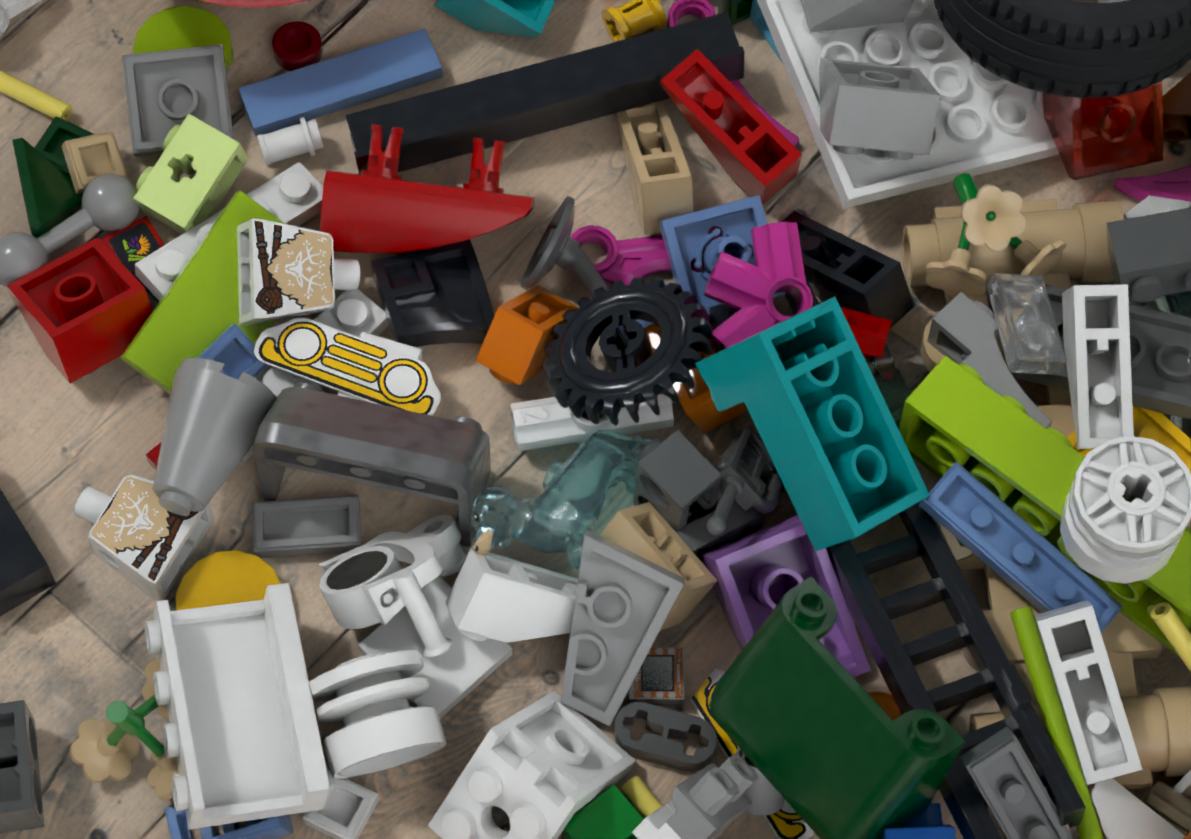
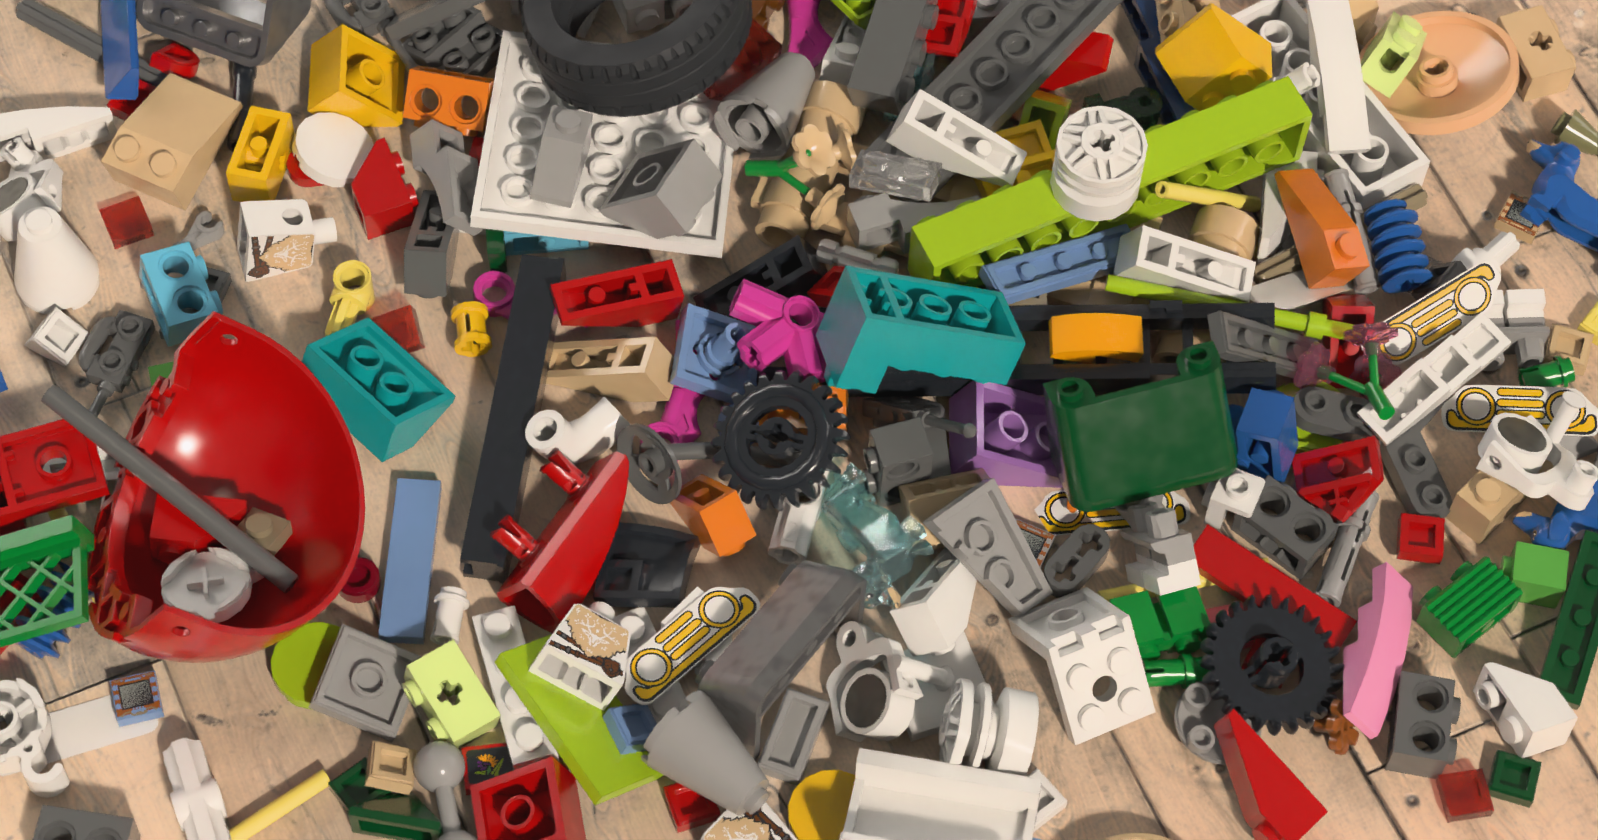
camera: 65 degrees left, 5 degrees down
(549, 167) = (579, 438): none -> white cylinder
(912, 339) = (831, 252): none -> white axle
(934, 624) = (1095, 334): none -> light orange slope
(1057, 163) = (766, 108): none -> light grey cone

